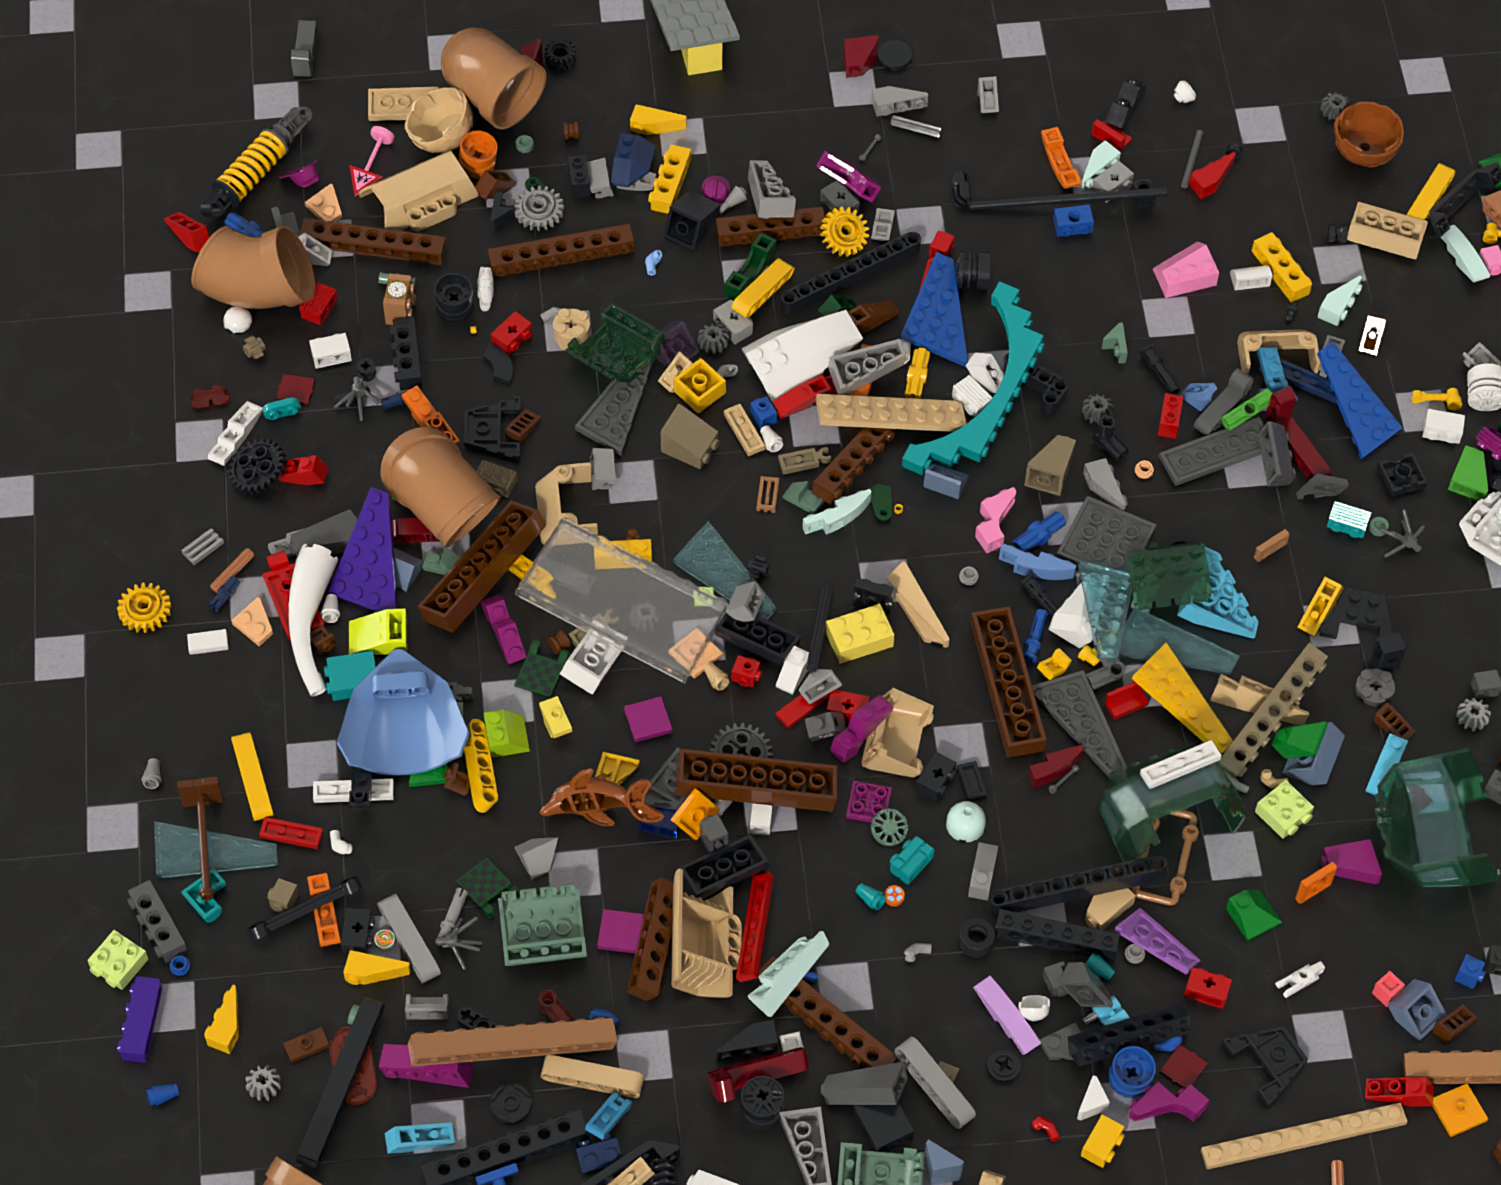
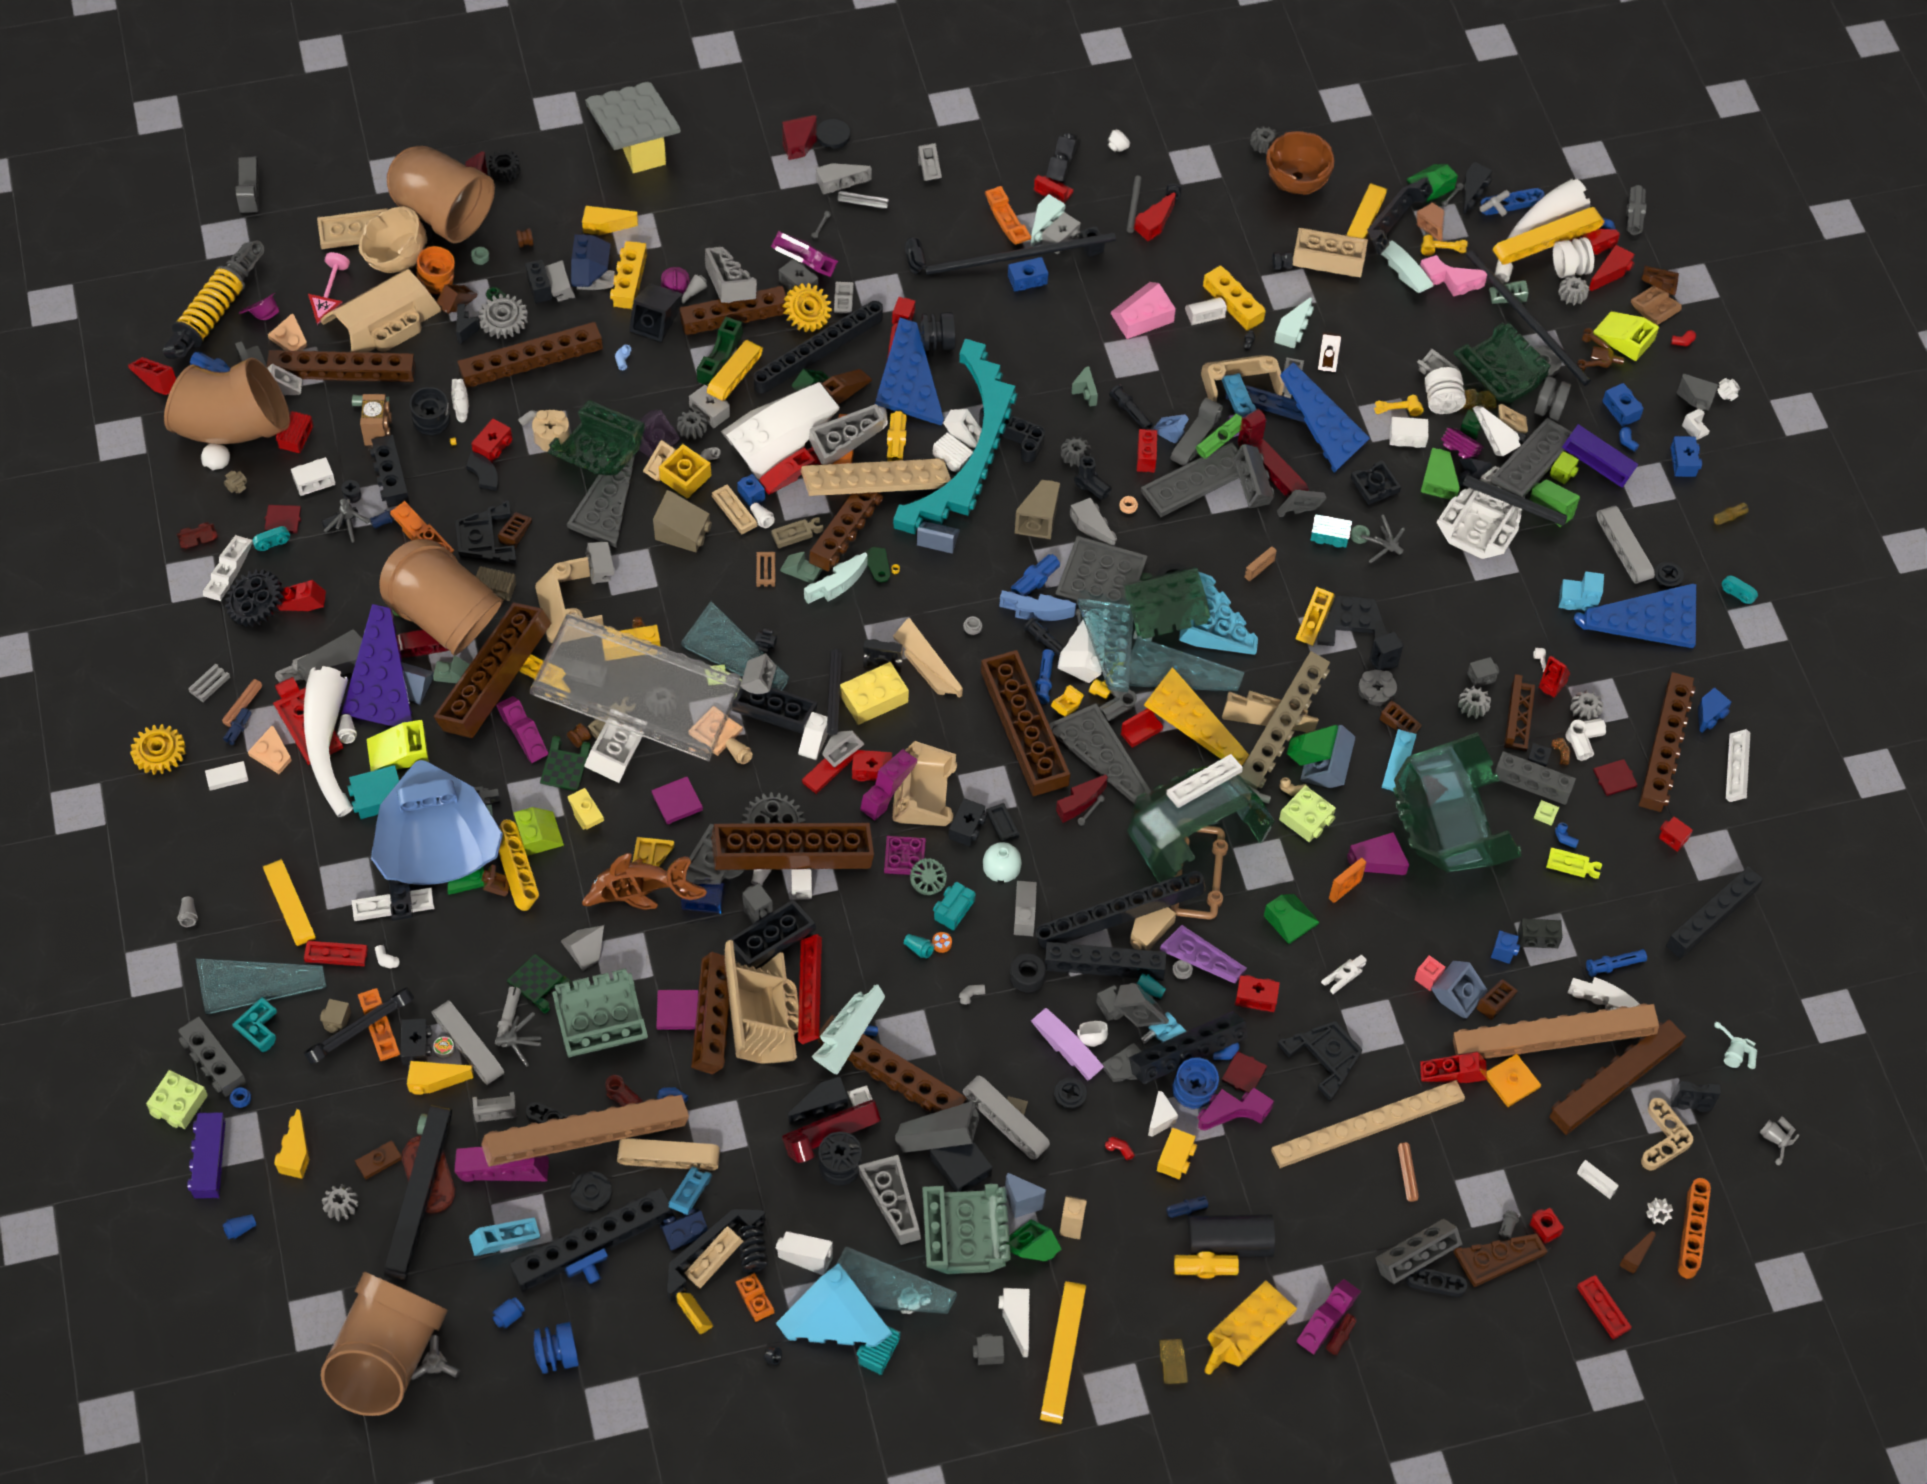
camera: 10 degrees left, 0 degrees up
(201, 793) = (239, 925): reddish brown tile -> none
(322, 640) = (342, 760): reddish brown bracket -> none
(693, 811) = (734, 884): light orange plate -> none
(746, 671) = (768, 742): red brick -> none
(823, 725) = (852, 785): dark grey torso -> none
(994, 511) = (989, 561): bright pink arch -> none

